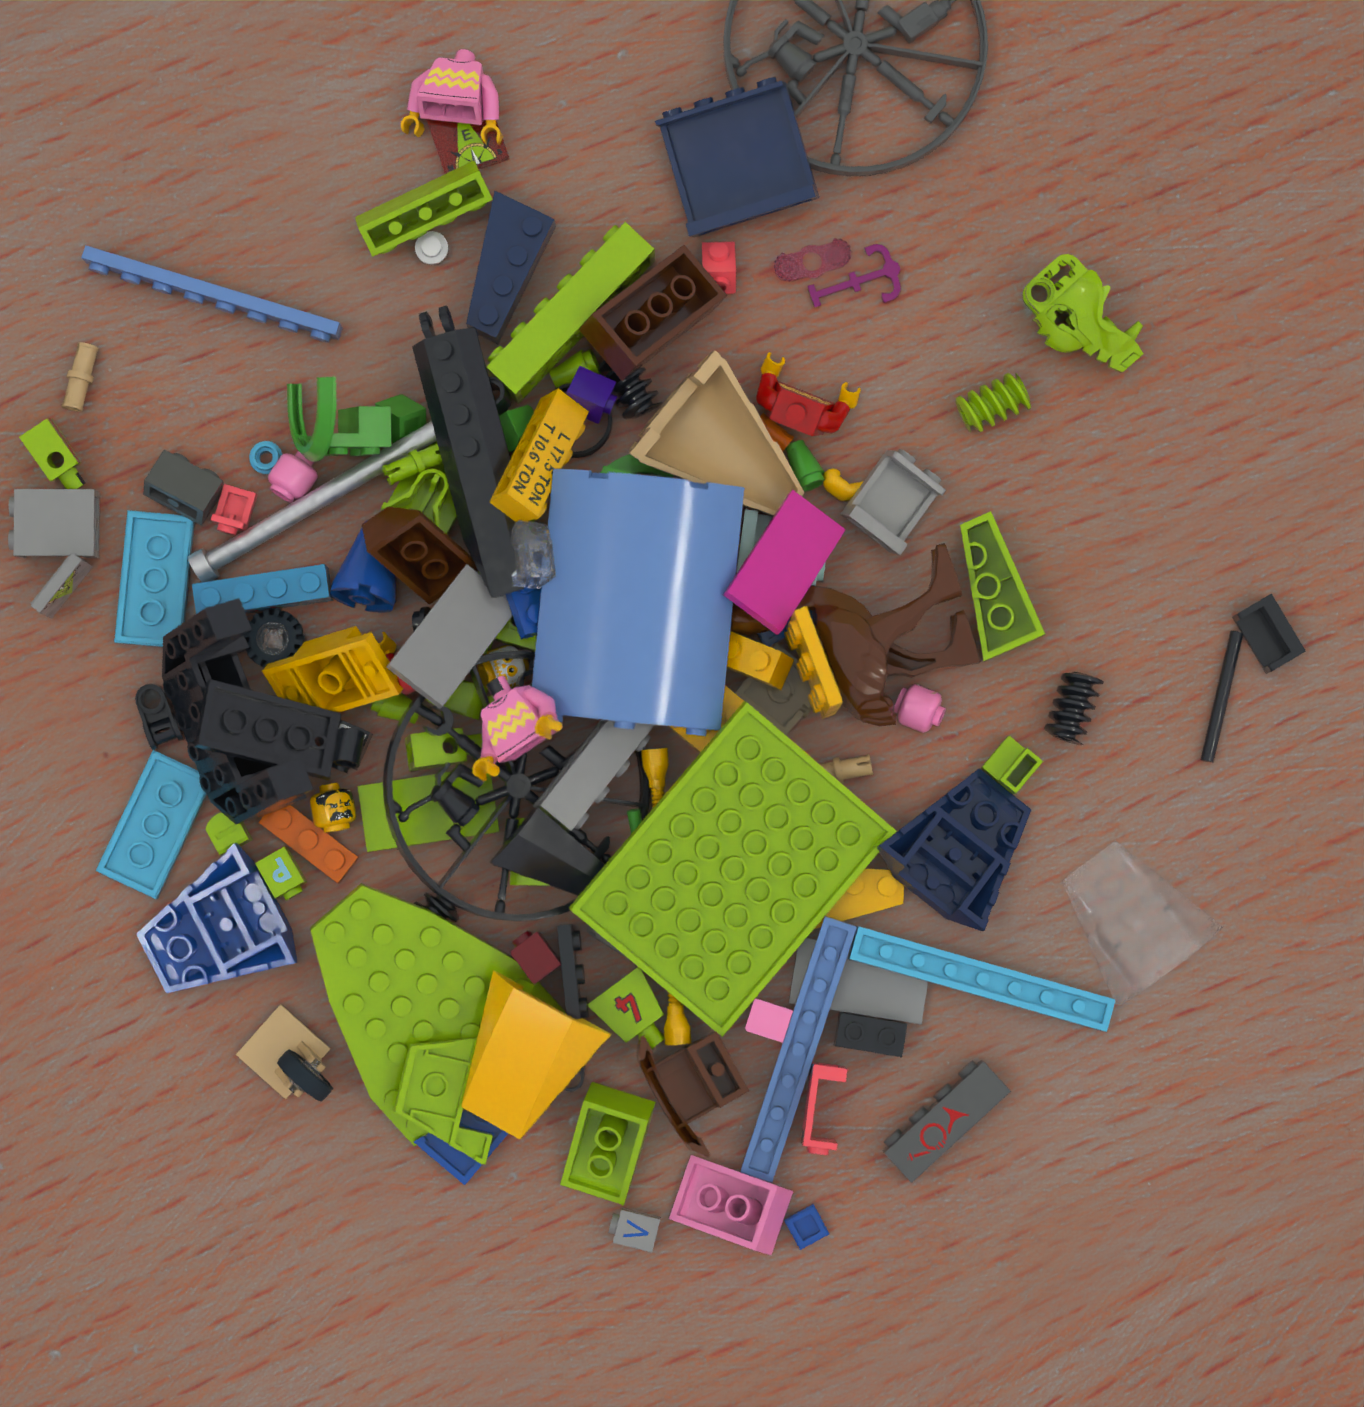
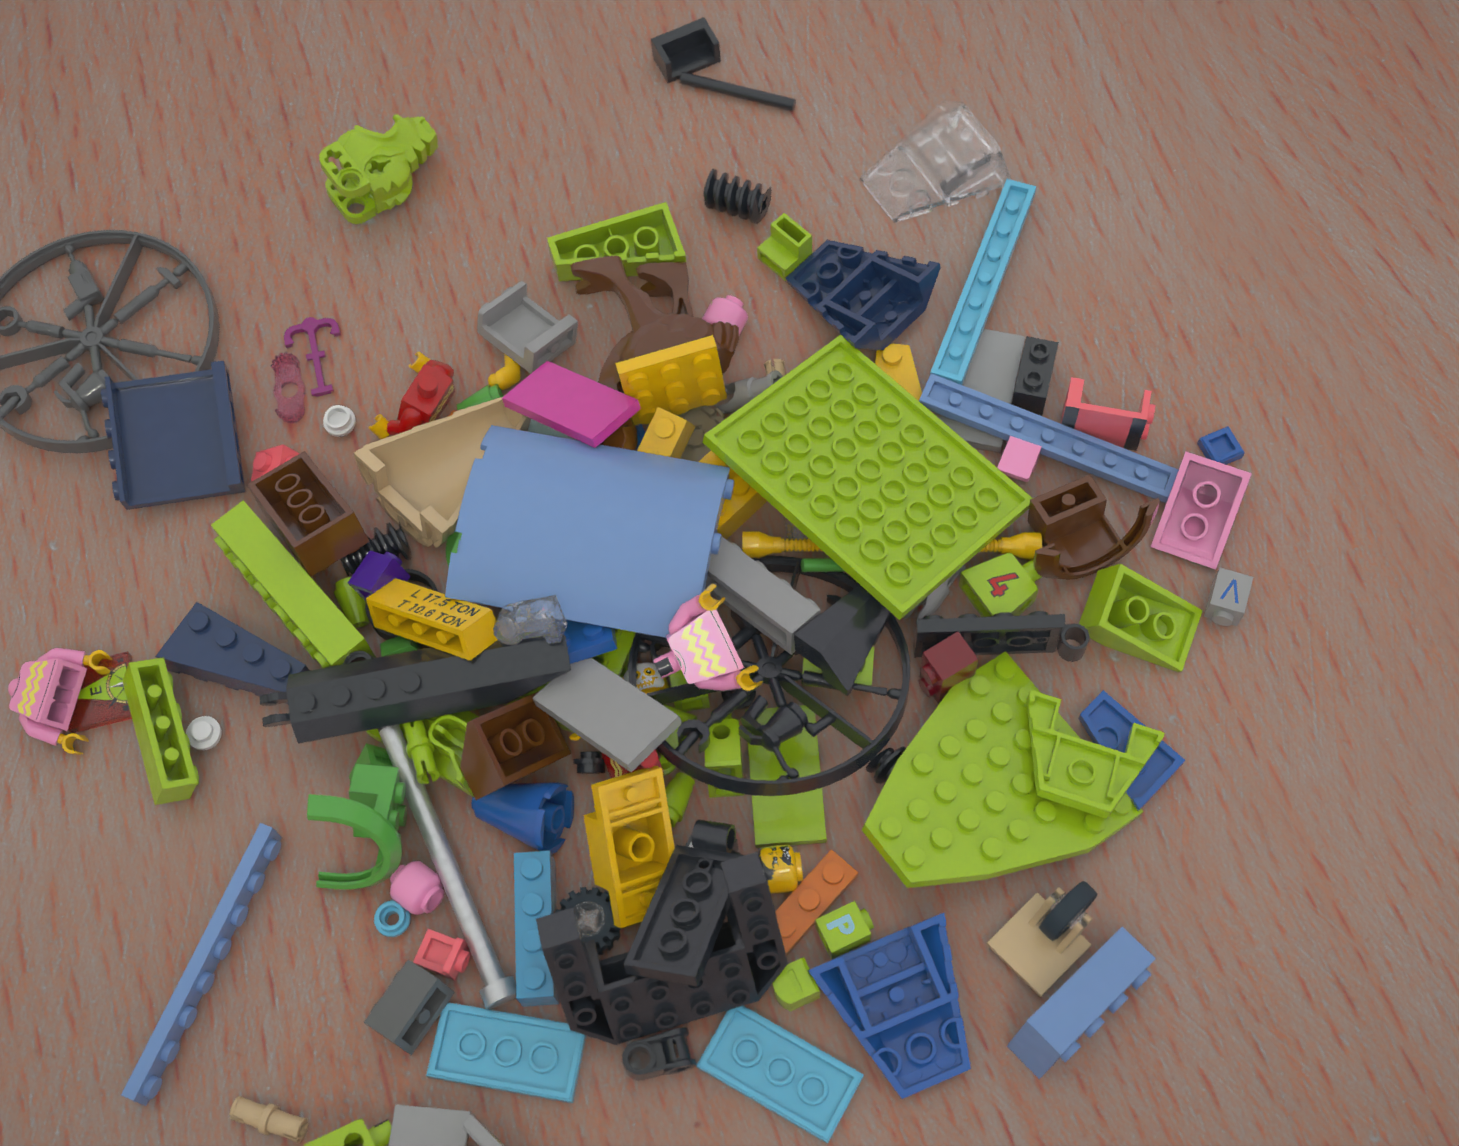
camera: 80 degrees left, 20 degrees down
(229, 1092) = (1081, 1002): none -> medium blue wedge
(524, 1056) = (1053, 674): yellow wedge -> none
(777, 320) = (339, 420): none -> white plate
(830, 745) = (746, 390): none -> light grey piece
(946, 1120) = (1118, 320): dark grey brick -> none
(993, 402) = (448, 244): lime piece -> none

